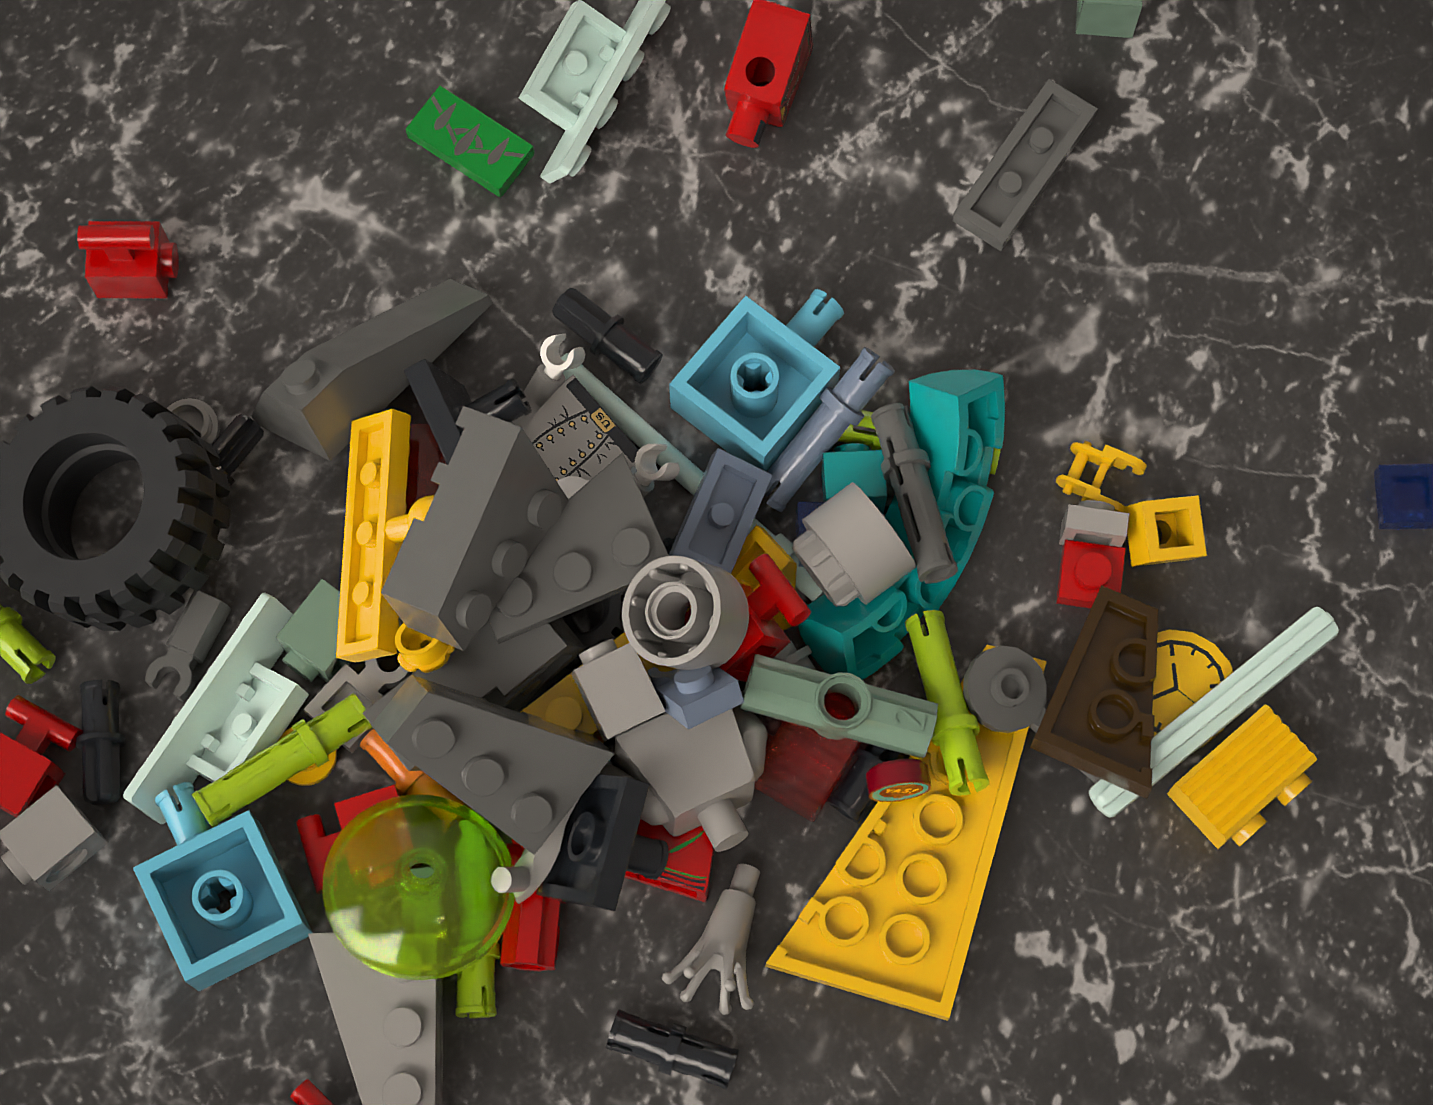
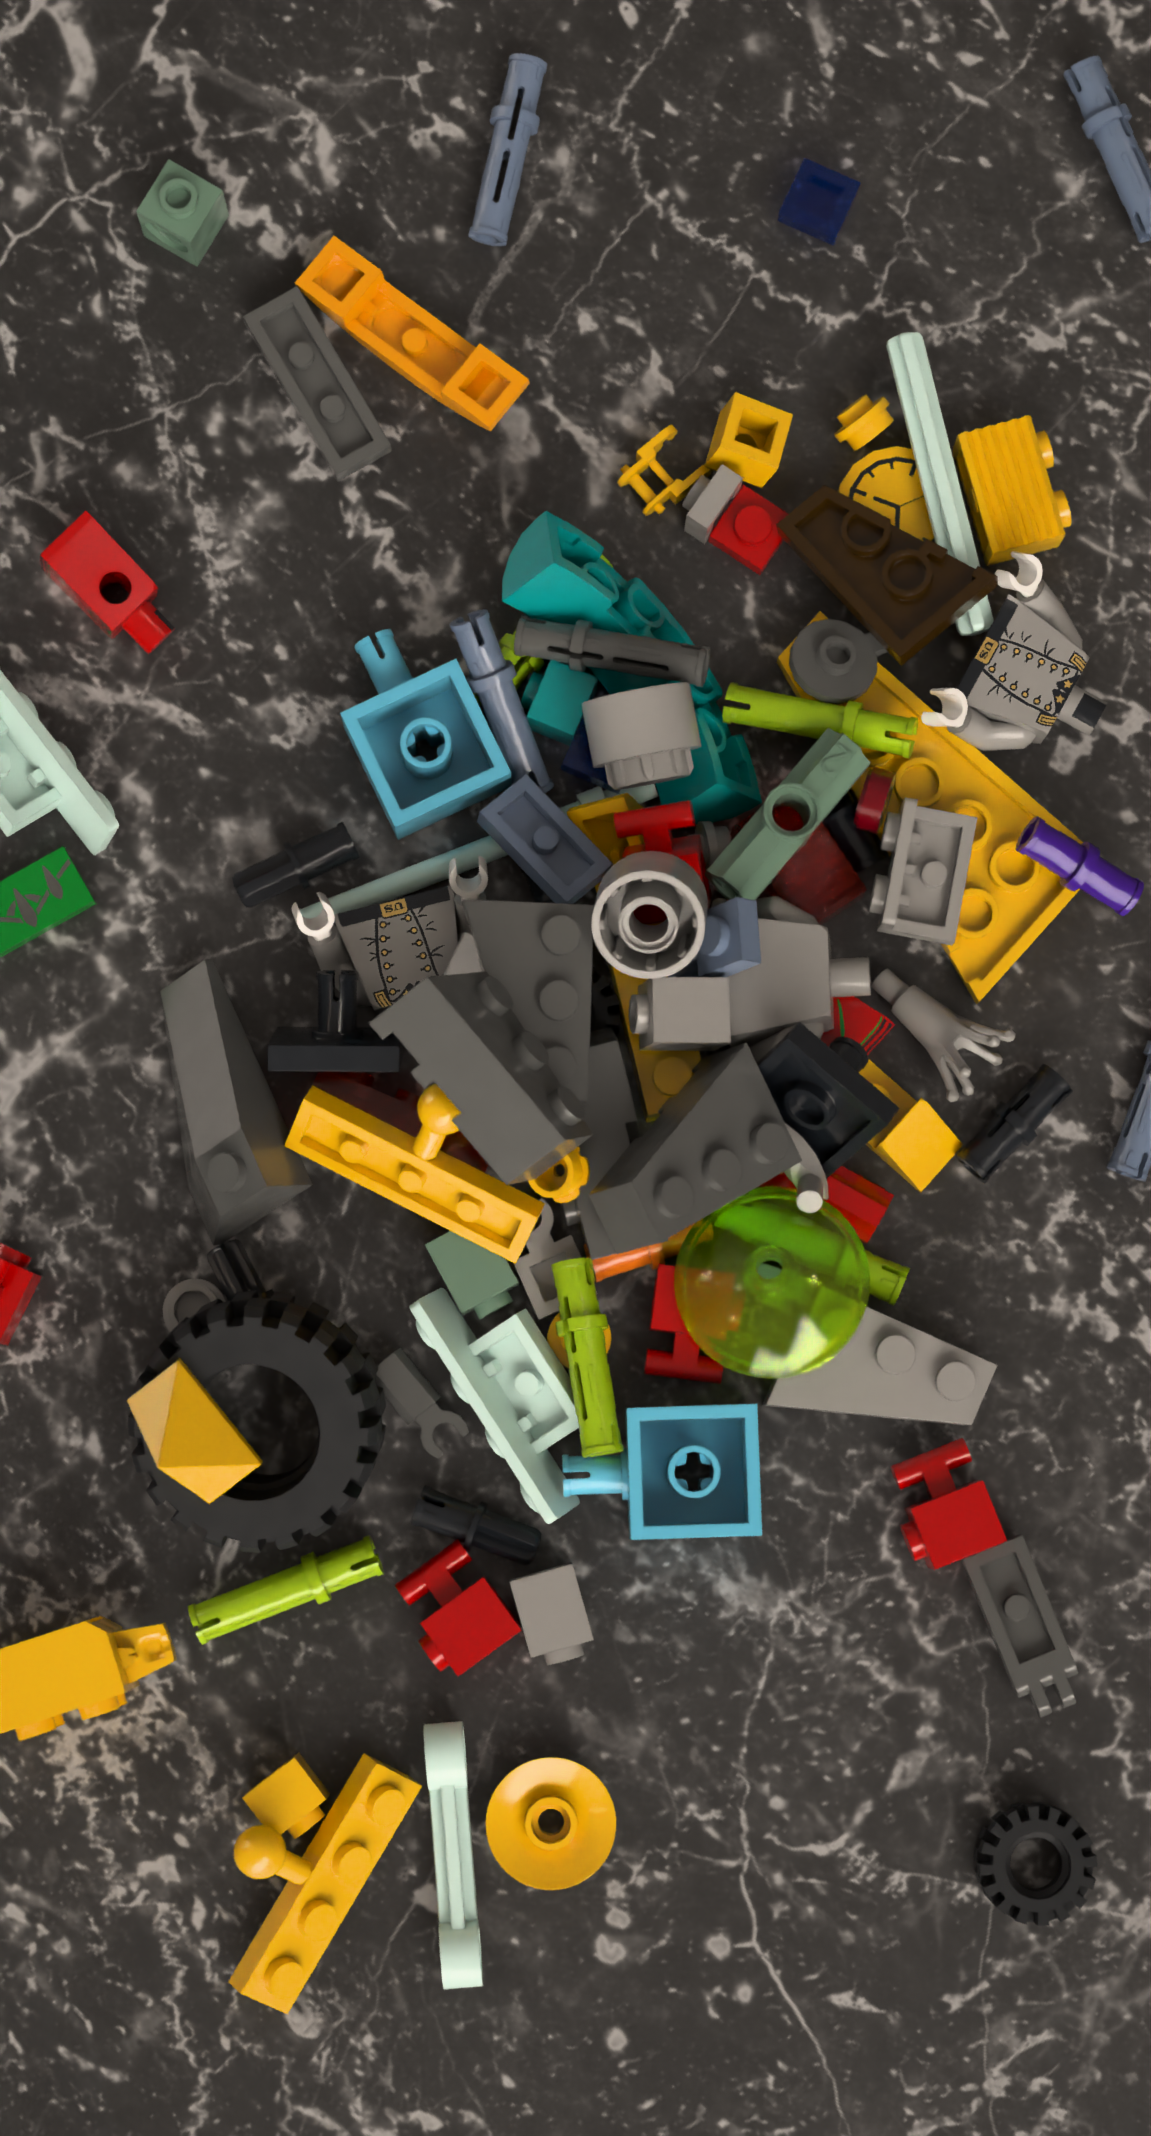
camera: 70 degrees left, 10 degrees up
(55, 444) = (191, 1434): none -> yellow slope
(621, 948) = (916, 1138): none -> yellow slope
(853, 851) = (924, 873): none -> light grey bracket
(930, 993) = (1079, 866): none -> dark purple pin
(1081, 861) = (1021, 672): none -> light grey torso
(1106, 216) = (409, 337): none -> light orange slope
(1236, 622) = (863, 421): none -> yellow plate
(1332, 218) = (523, 82): none -> sand blue pin

